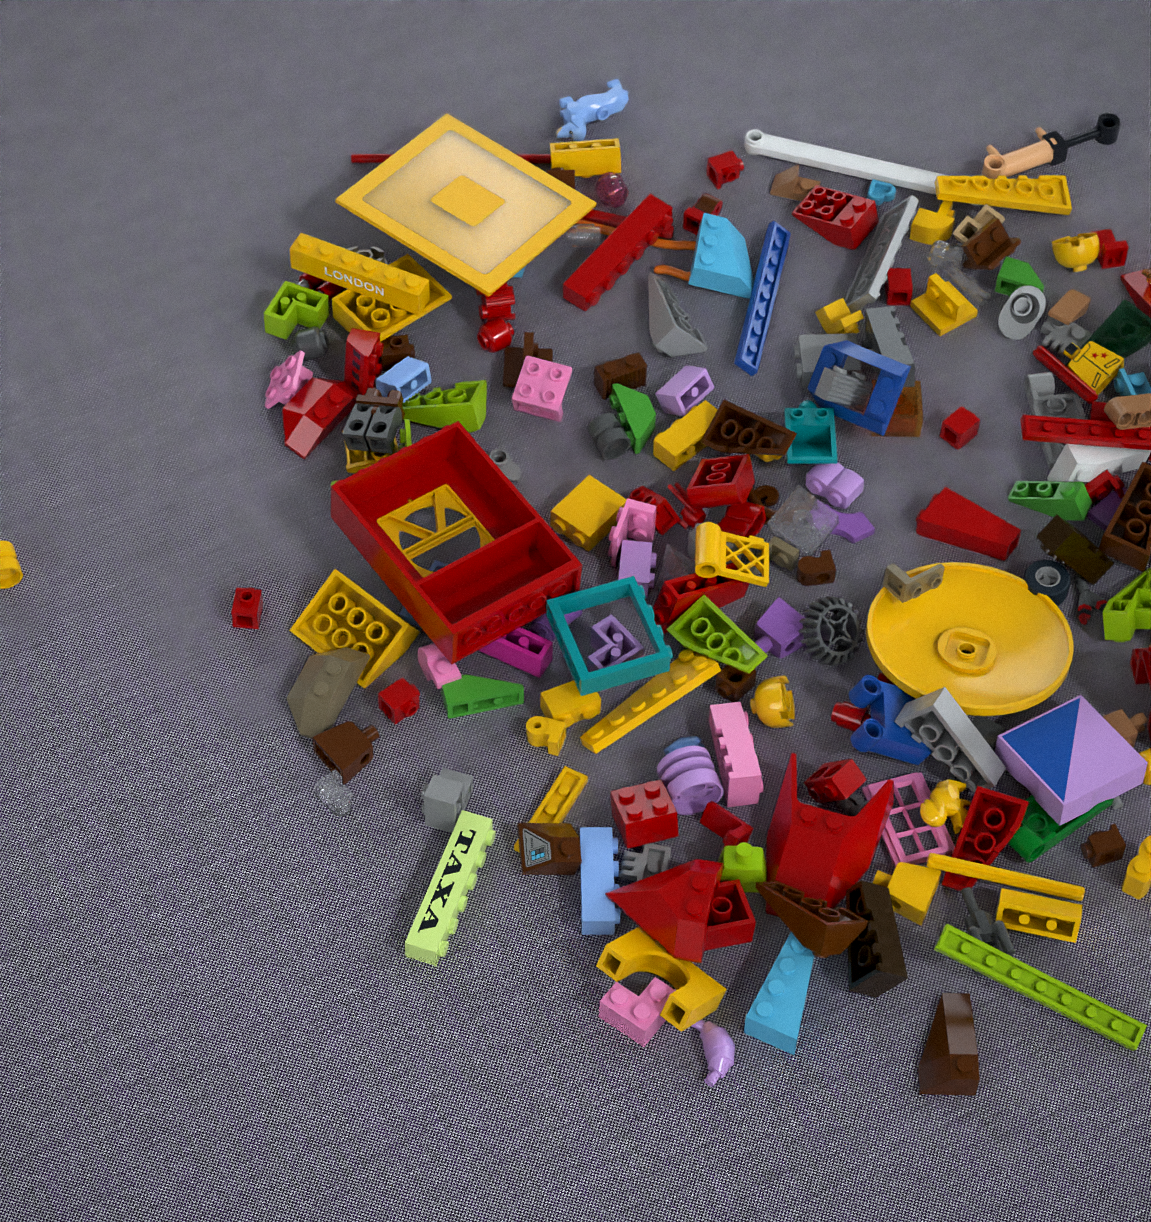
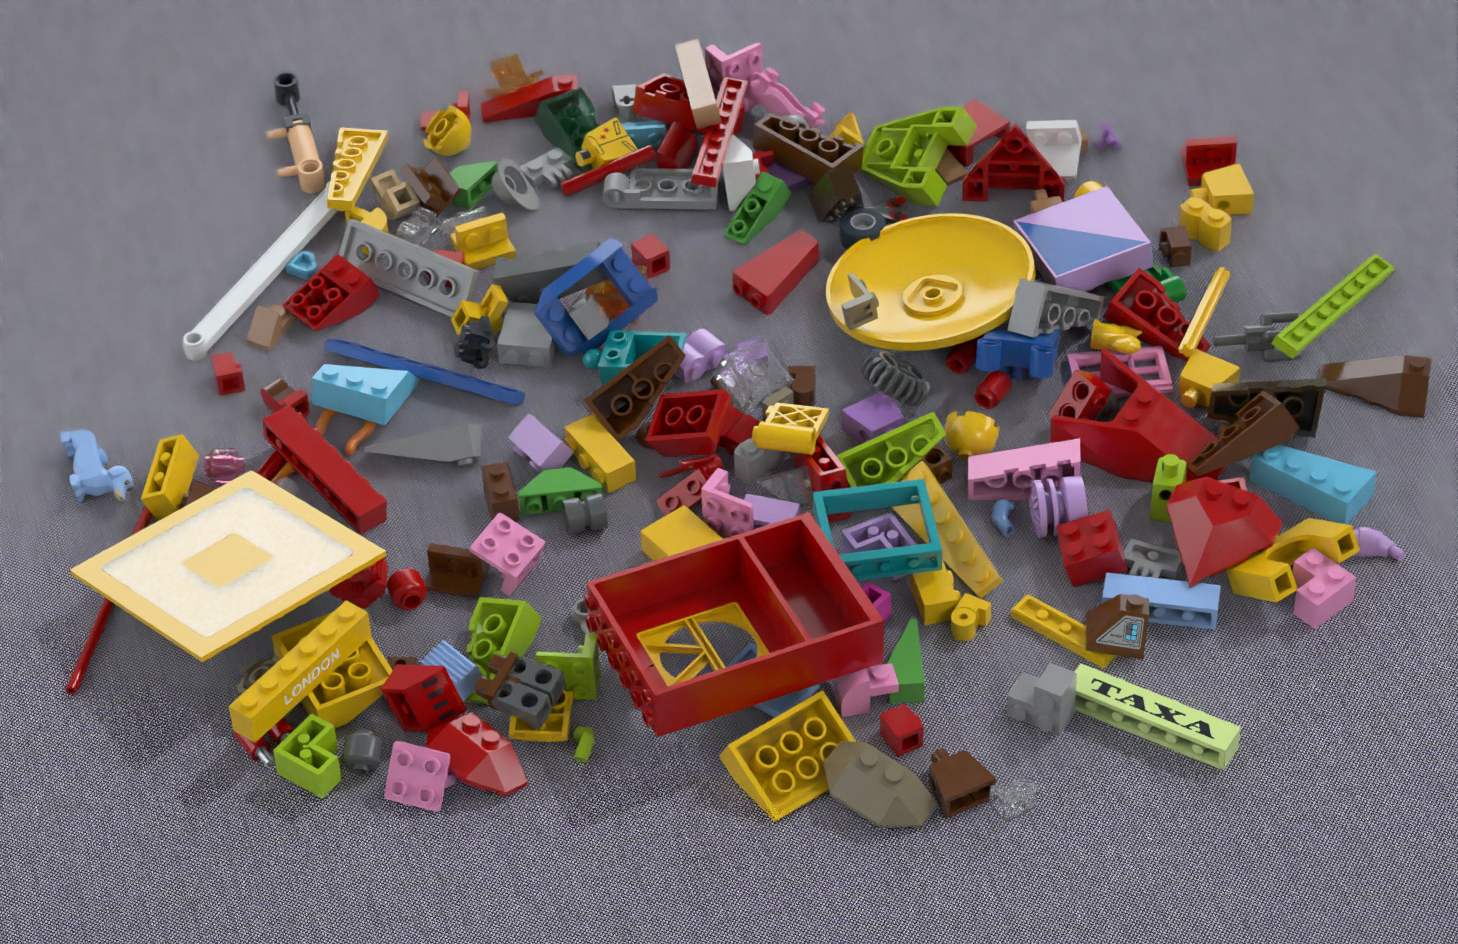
camera: 75 degrees left, 10 degrees down
(247, 608) = (741, 848): red brick -> none
(725, 825) = (1117, 491): red bracket -> none
(801, 321) = (475, 343): none -> black piece
(1039, 915) = (1250, 297): yellow brick -> none
(1070, 307) = (521, 152): medium nougat slope -> none

